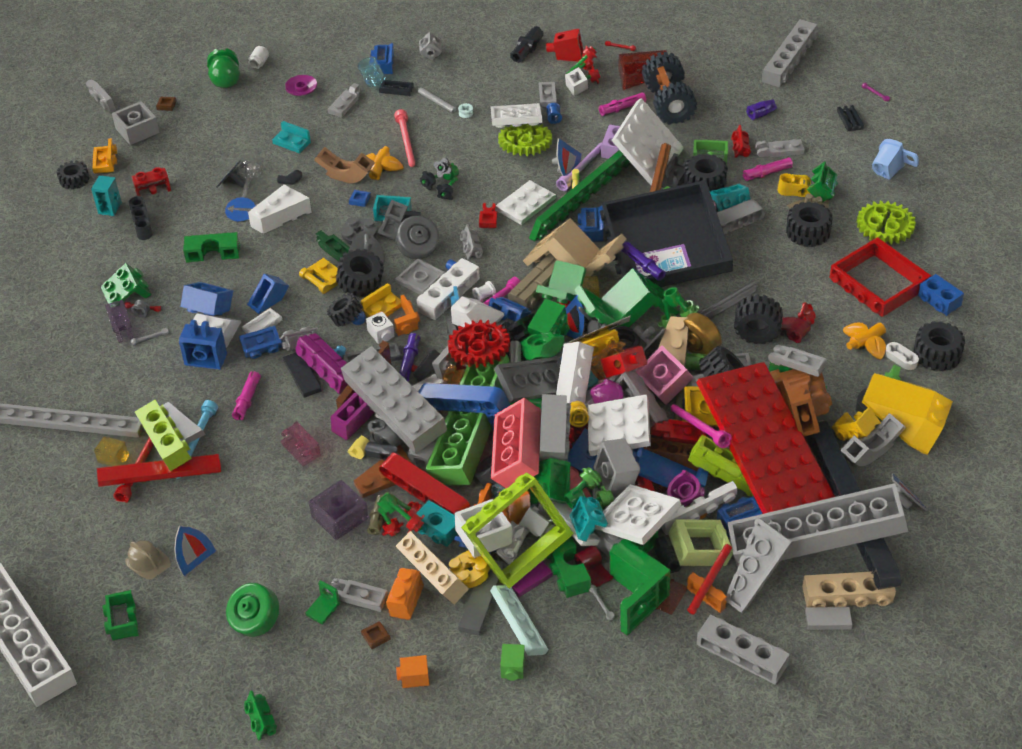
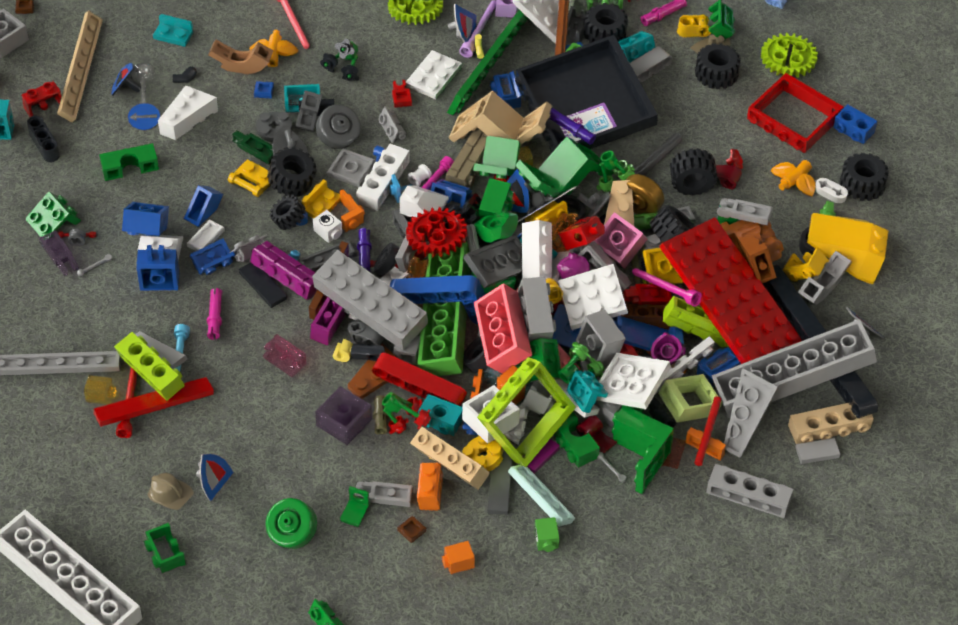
camera: 15 degrees left, 5 degrees up
(195, 160) = (80, 67): none -> tan plate

